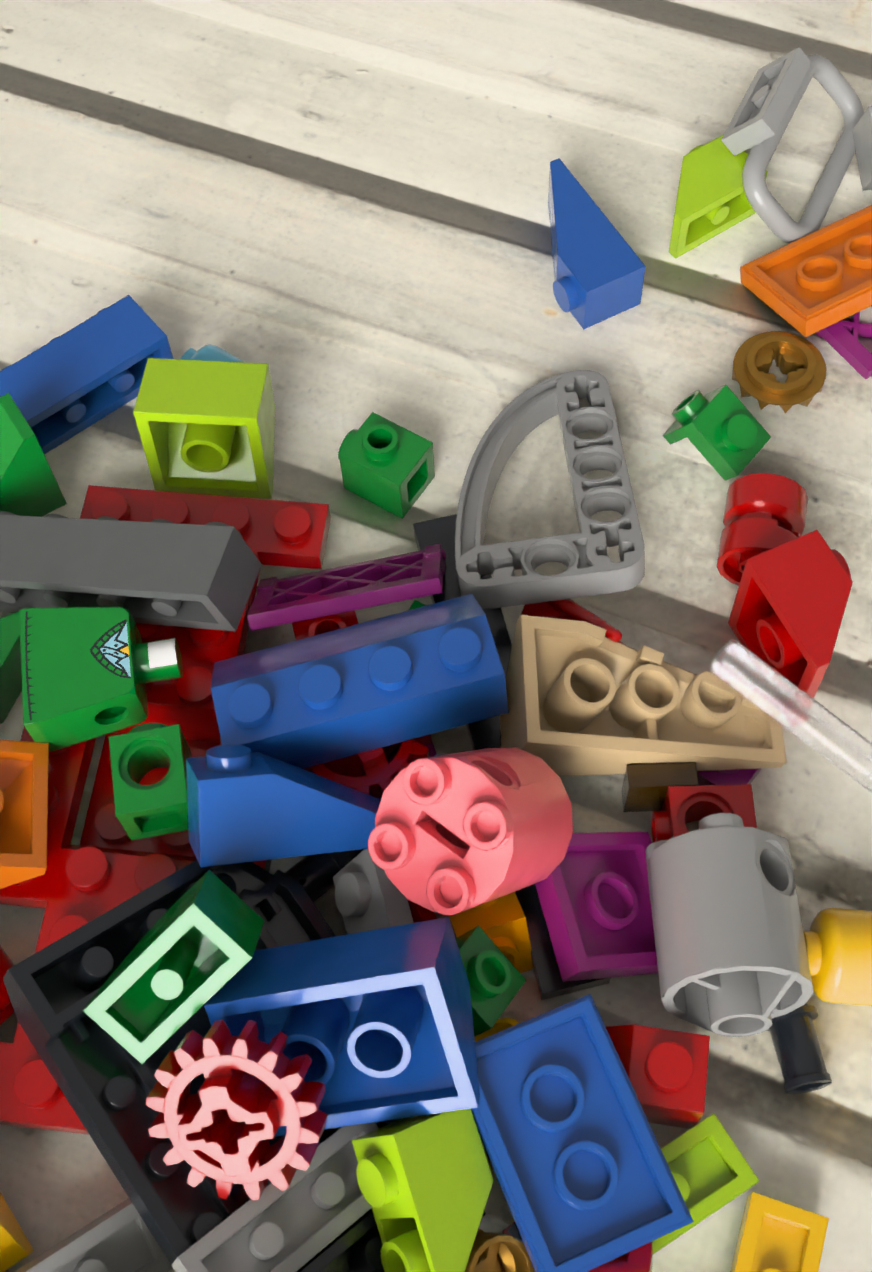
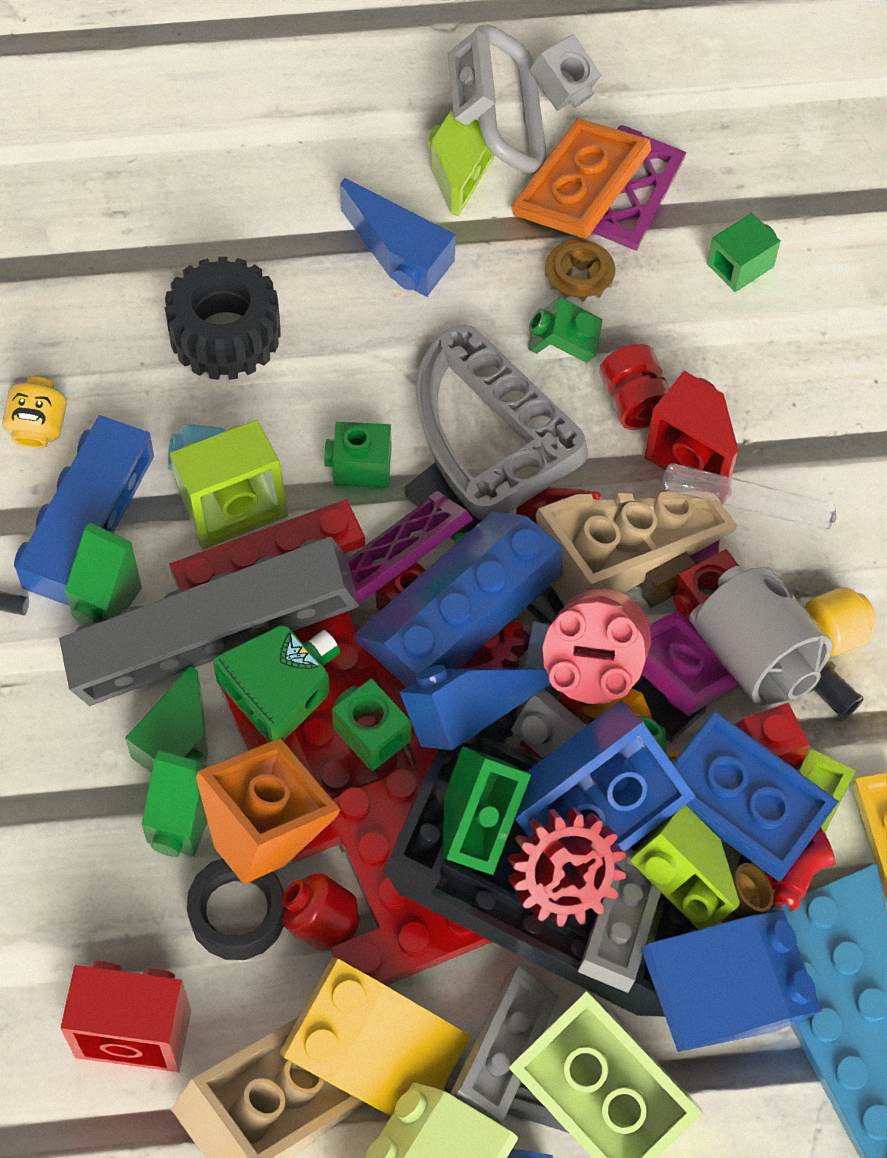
camera: 35 degrees left, 0 degrees up
(78, 269) = (34, 412): none -> yellow head
(333, 253) = (220, 289): none -> black tyre

